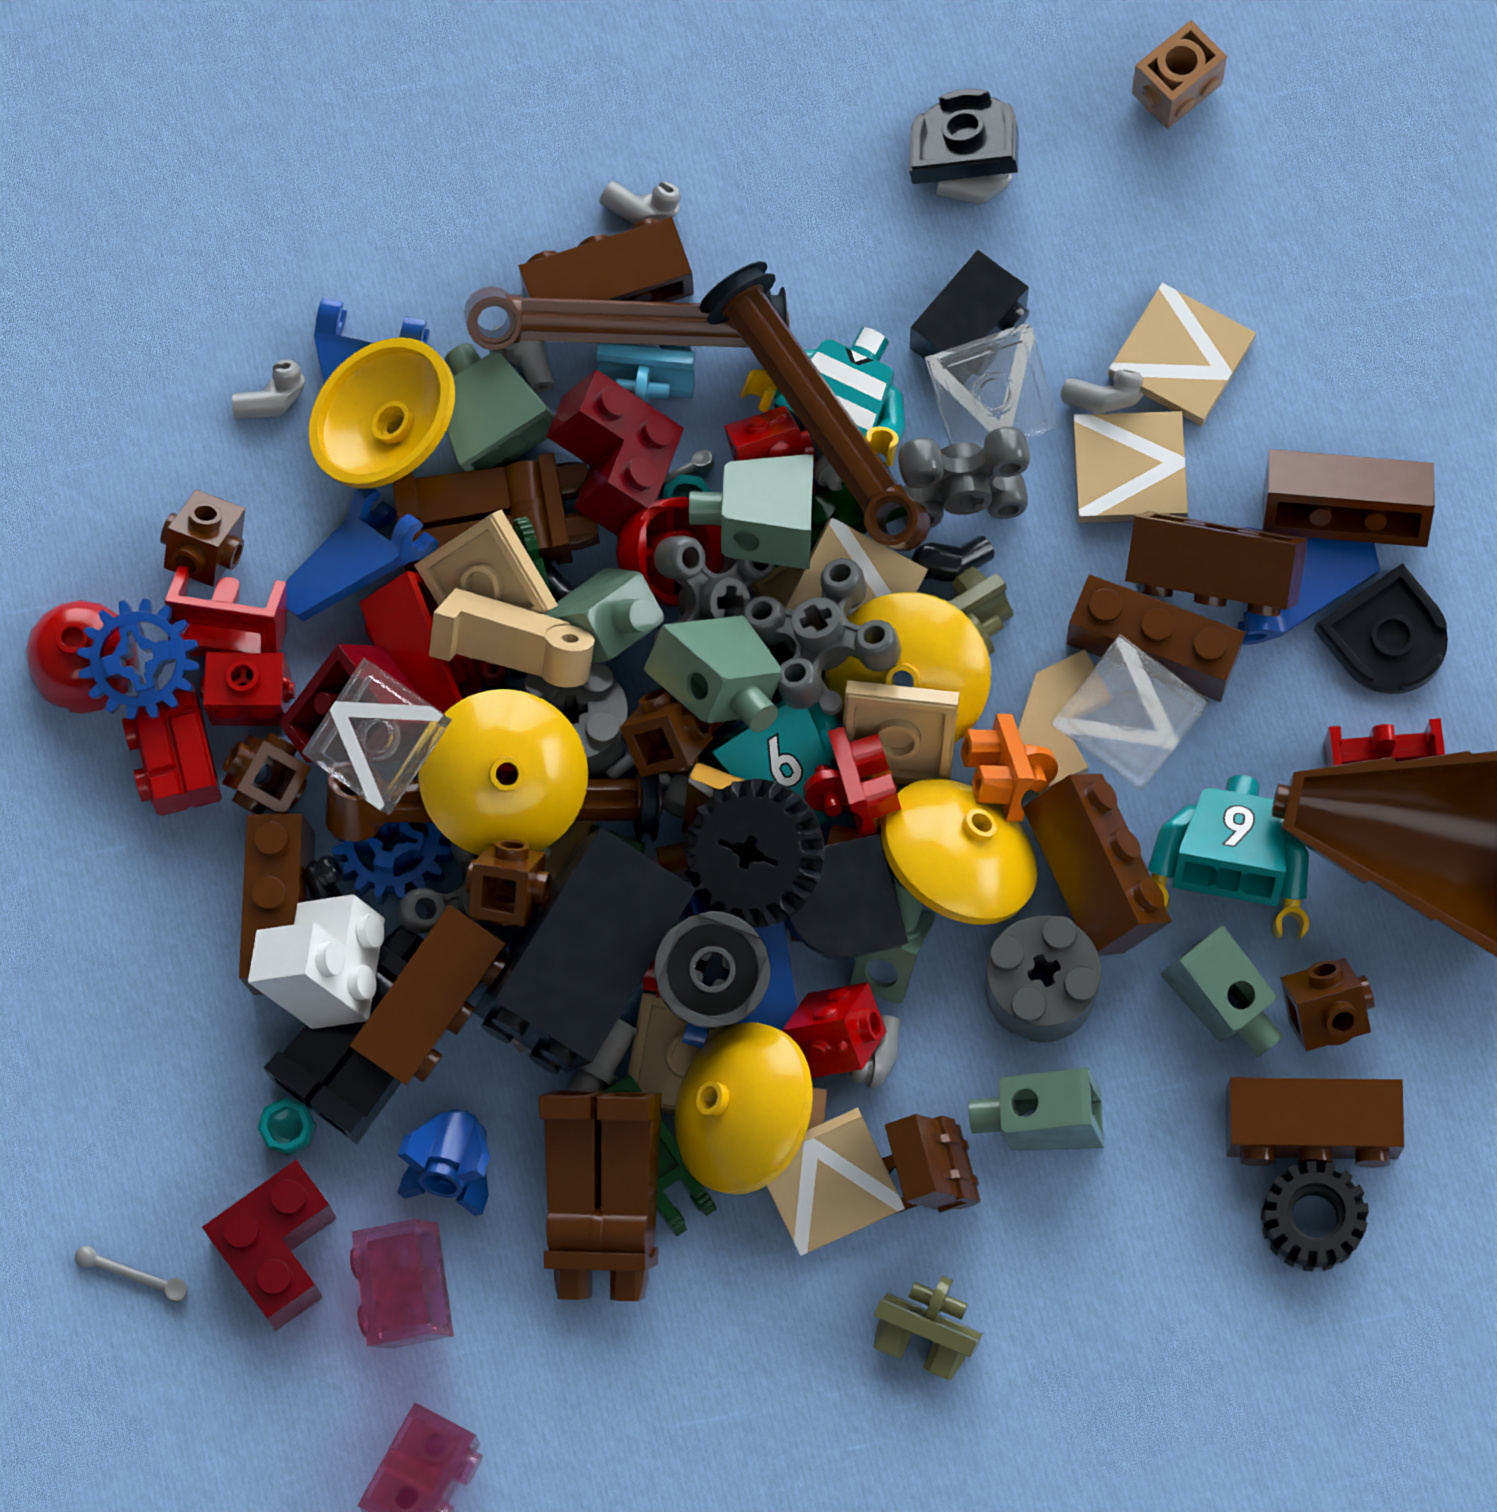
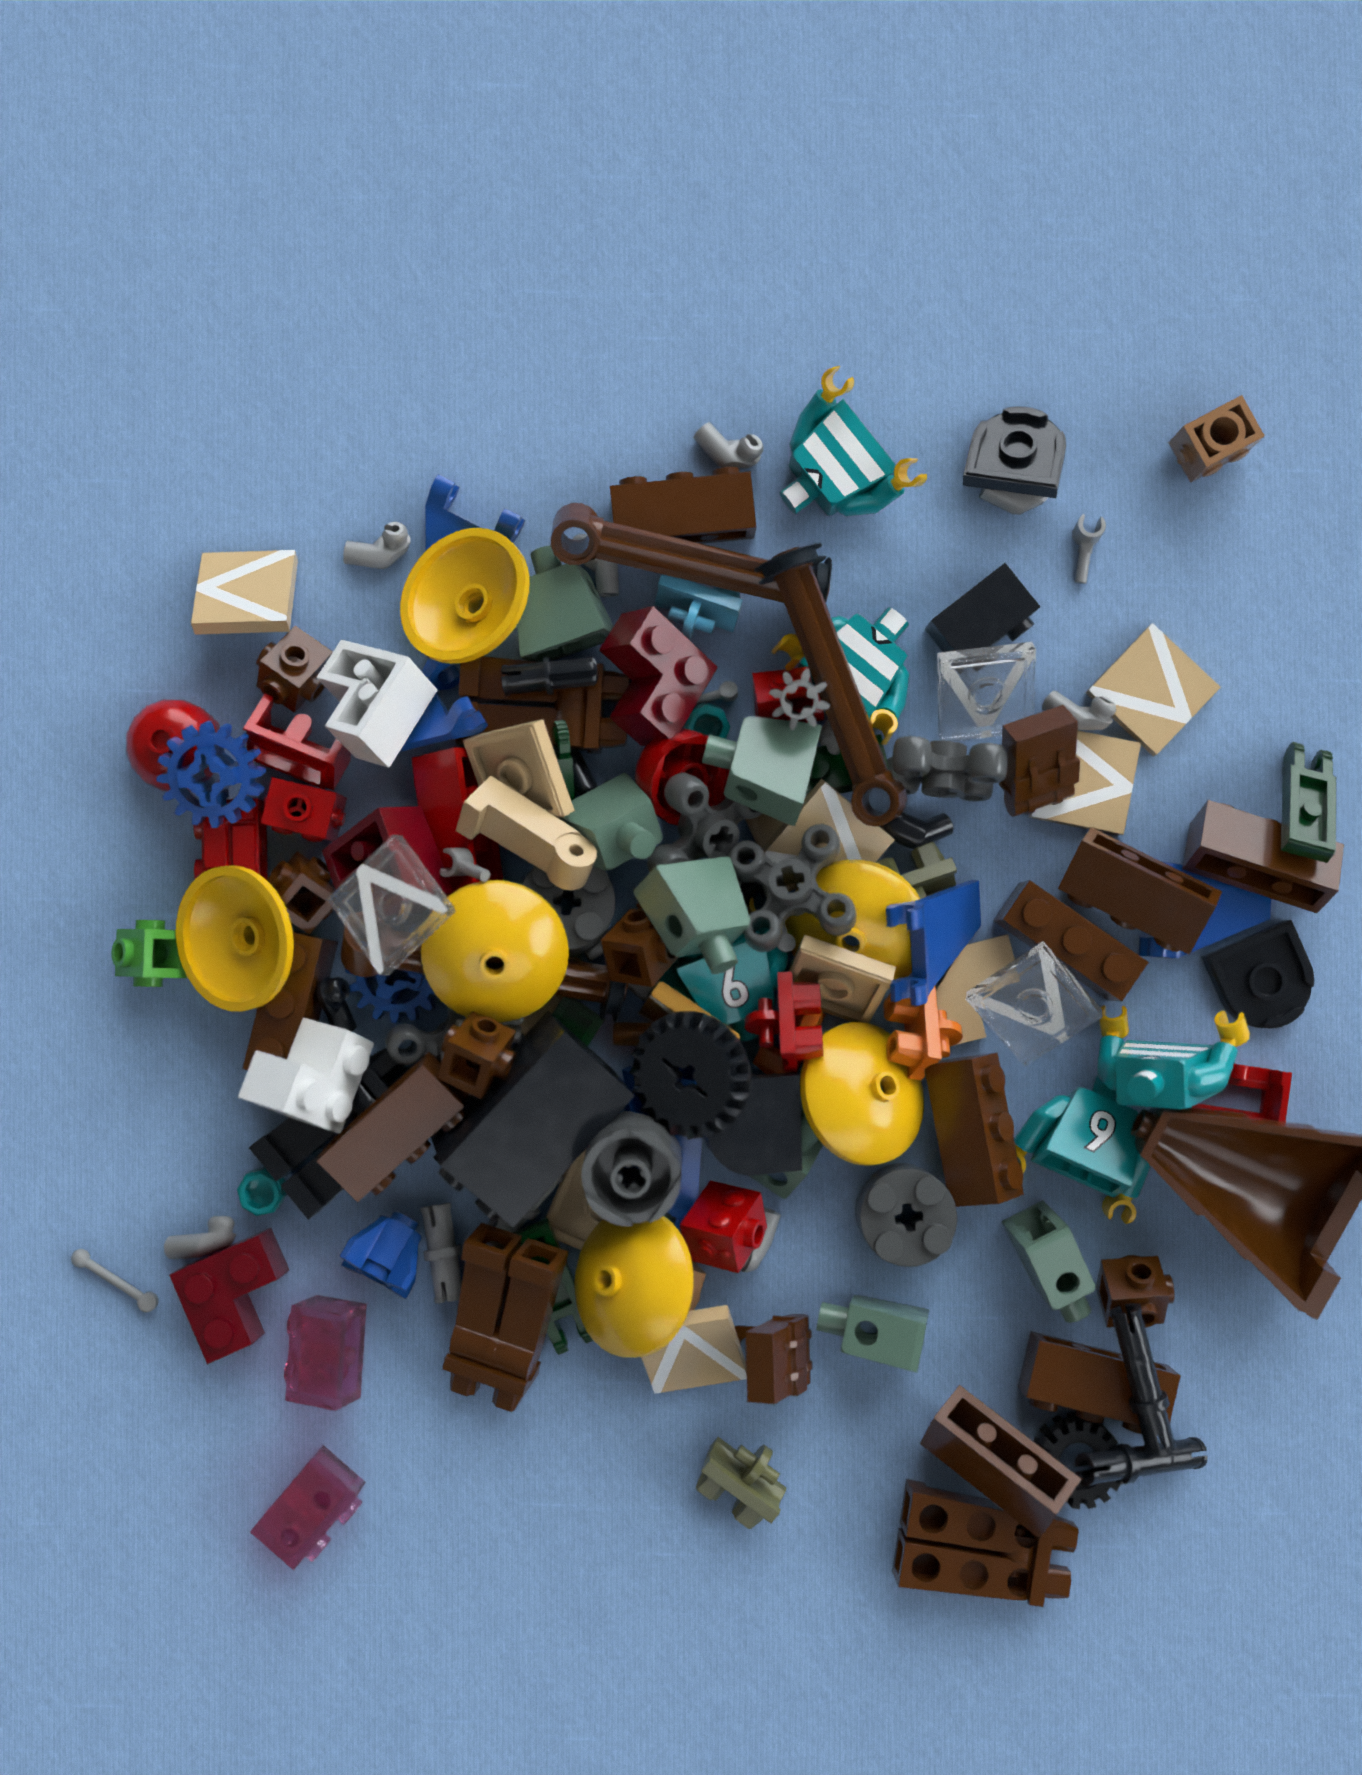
camera: 10 degrees right, 15 degrees up
(104, 882) = (147, 954): none -> bright green brick
(130, 469) = (245, 592): none -> tan tile
(179, 823) = (234, 938): none -> yellow dish
(243, 1181) = (197, 1245): none -> light grey arm
(305, 541) = (378, 700): none -> white brick
(447, 689) = (463, 865): none -> light grey hand
(496, 476) = (549, 675): none -> black axle
(513, 1148) = (442, 1252): none -> light grey pin
(769, 187) = (841, 460): none -> teal torso
(769, 417) = (787, 705): none -> light grey gear
(1004, 655) = (938, 933): none -> blue flag
(1067, 214) = (1086, 542): none -> light grey hand
(1067, 445) = (1040, 760): none -> reddish brown piece
(1216, 1218) = (999, 1461): none -> reddish brown brick
(1264, 1353) = (977, 1548): none -> reddish brown hips
(1294, 737) = (1166, 1072): none -> teal torso
(1355, 1083) = (1147, 1397): none -> black pin
(1365, 1188) = (1128, 1463): none -> black pin
(1381, 429) = (1308, 805): none -> hinge

